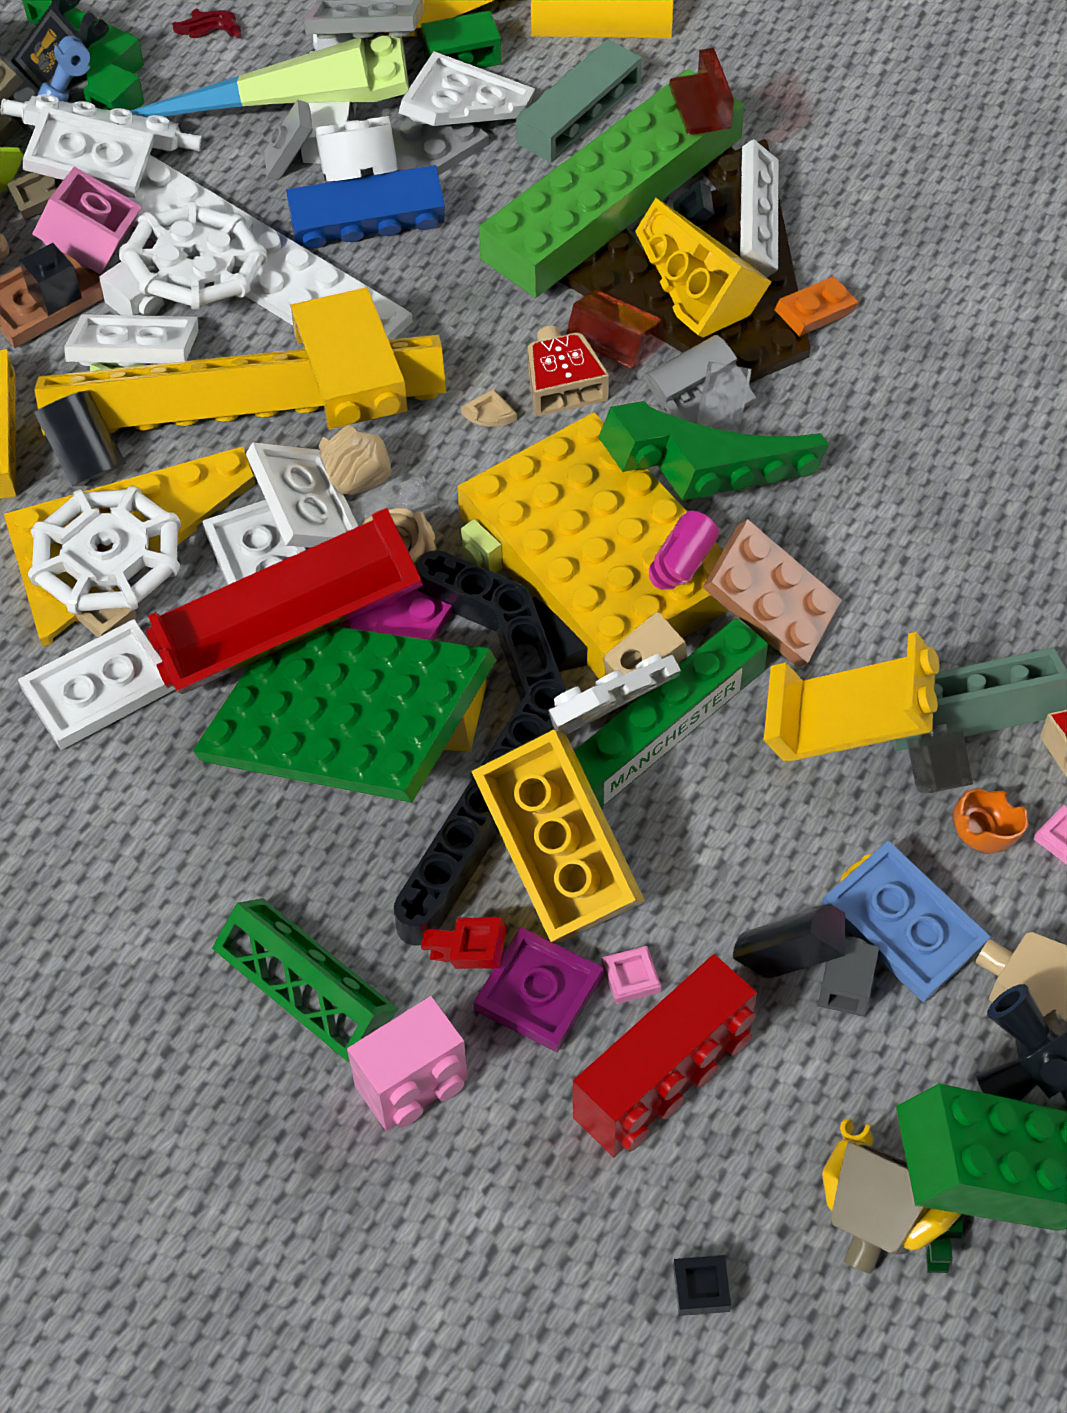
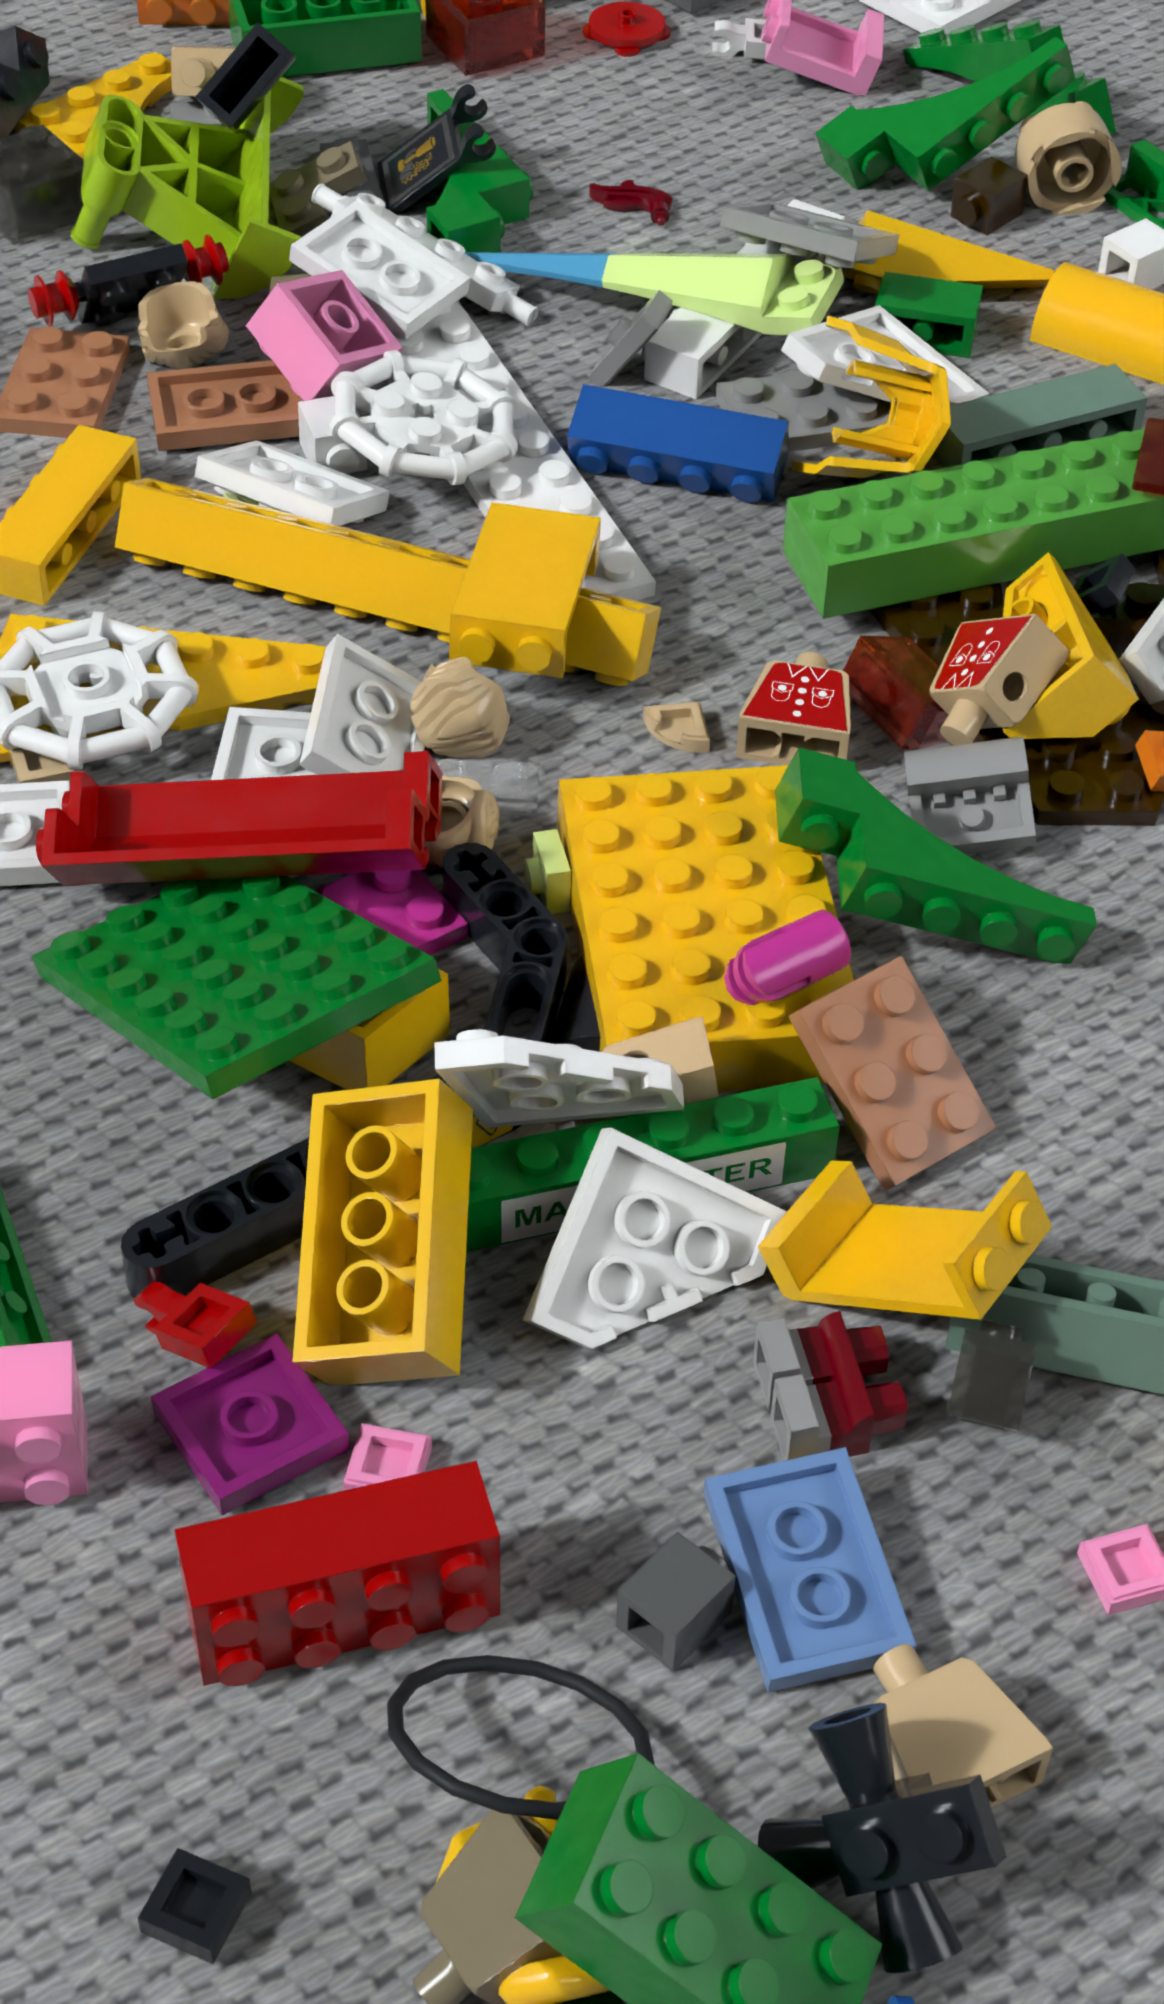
camera: 25 degrees right, 10 degrees down
(50, 278) = (237, 382): black brick -> none
(72, 61) = (428, 172): medium blue leg -> none
(80, 438) = (145, 559): black brick -> none
(356, 148) = (700, 367): white brick -> none
(523, 134) = (916, 416): none -> yellow piece
(676, 299) = (994, 674): none -> tan torso
(697, 764) = (645, 1243): none -> white plate
(723, 397) = (987, 812): clear plate -> none
(793, 942) = (618, 1513): black brick -> none
(817, 1147) = (478, 1795): none -> black piece
(846, 809) = (818, 1386): none -> hips
(991, 811) = (1012, 1474): orange hair -> none

